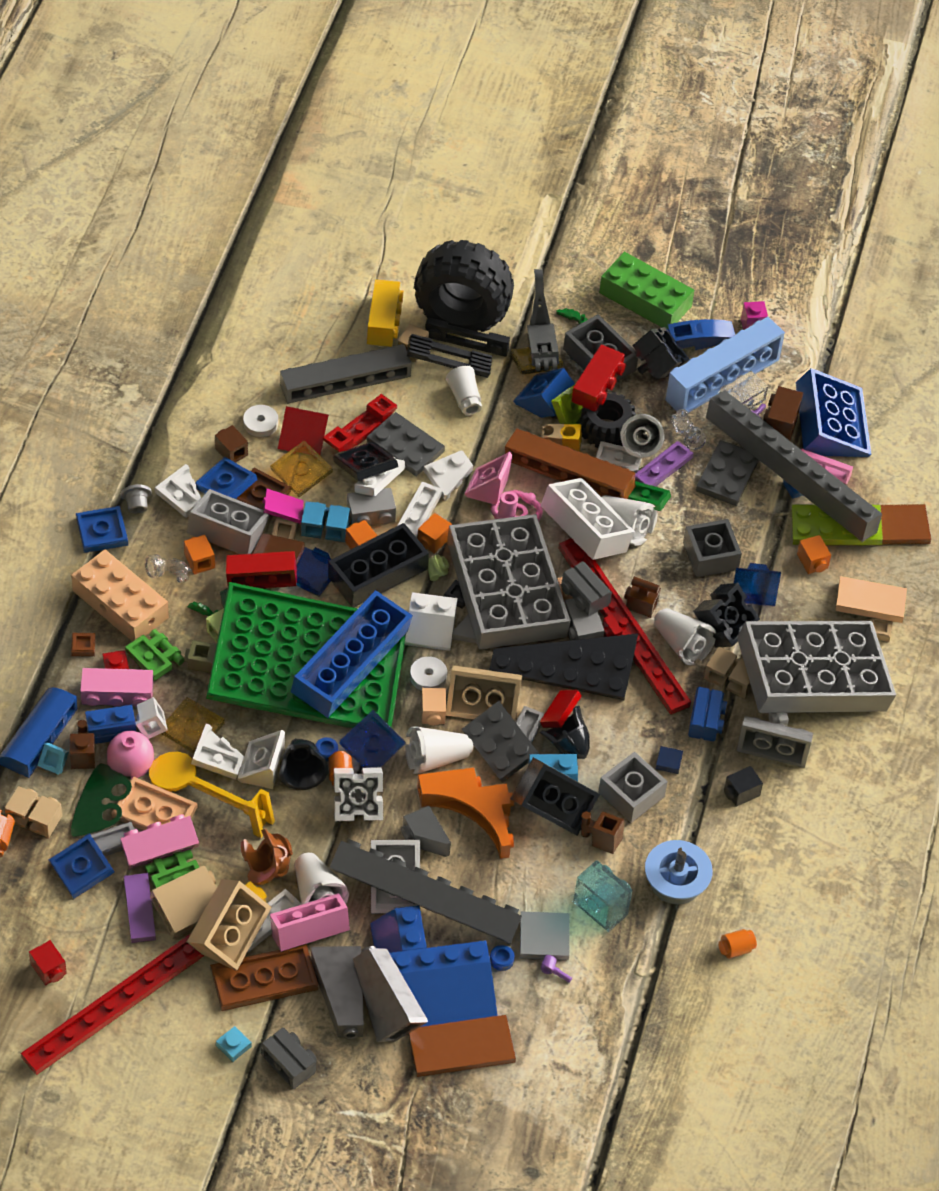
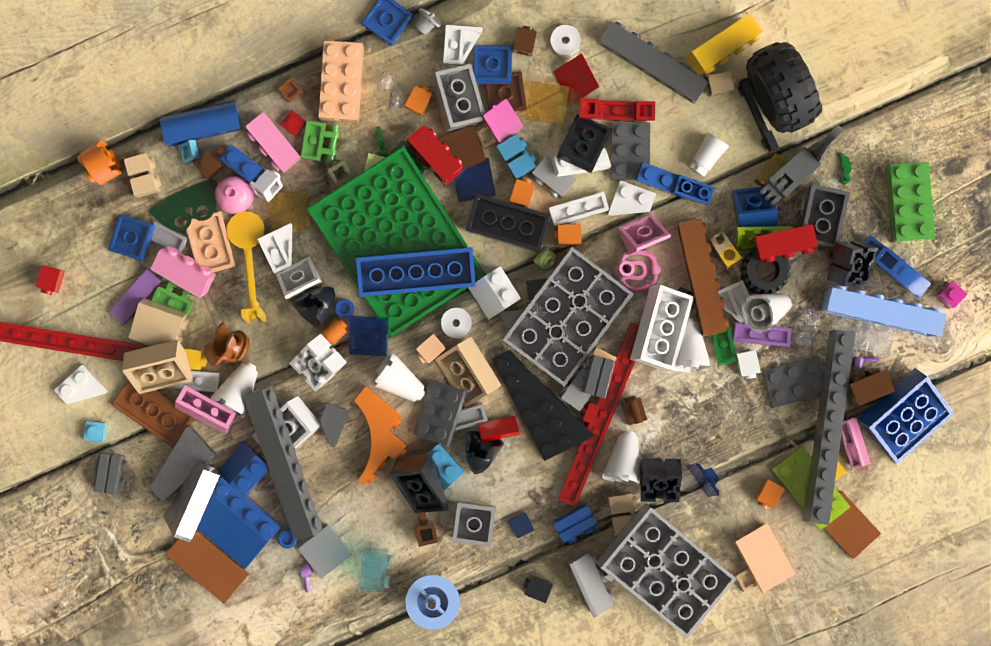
camera: 55 degrees right, 35 degrees up
(176, 1022) = (80, 386): none -> white wing
(420, 347) = (710, 98): black container -> none
(472, 430) = (674, 184): none -> blue slope
(681, 489) = (748, 364): none -> white brick
(712, 548) = (713, 425): dark grey brick -> none

